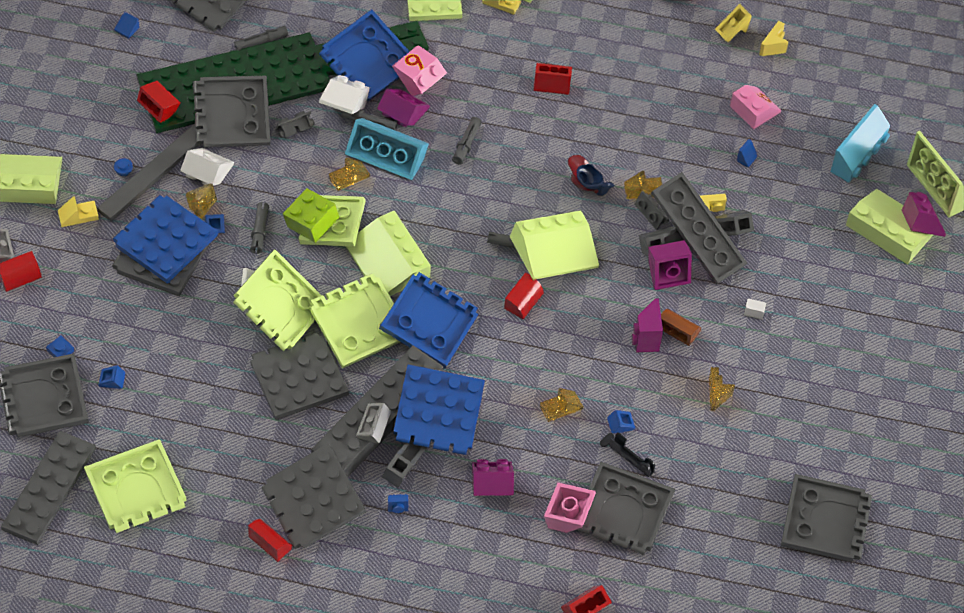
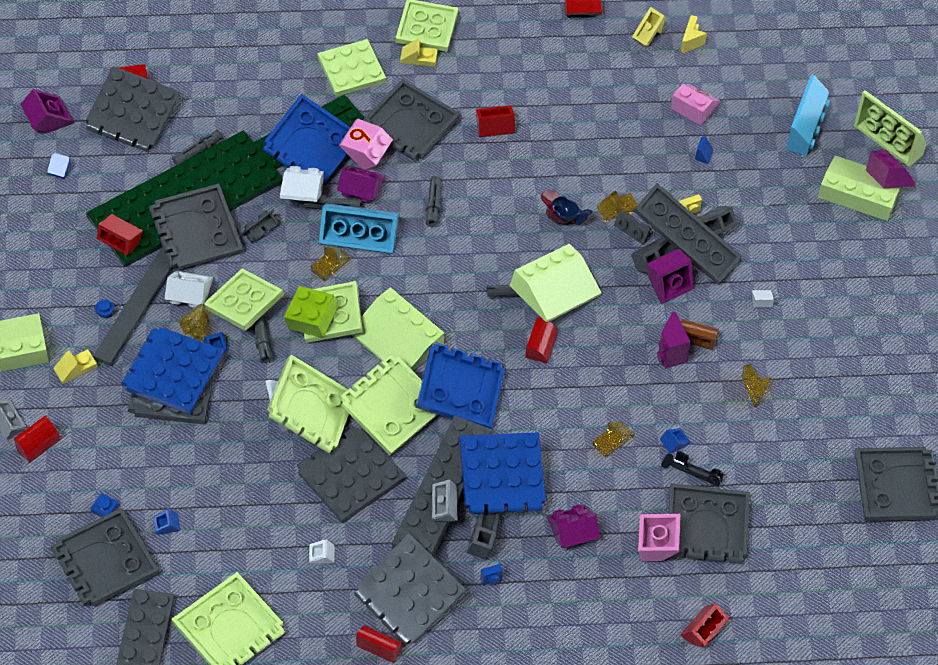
camera: 15 degrees left, 0 degrees up
(246, 442) = (321, 552): none -> white slope
(254, 189) = (243, 299): none -> yellowish green plate
(473, 59) = (412, 119): none -> dark grey hinge

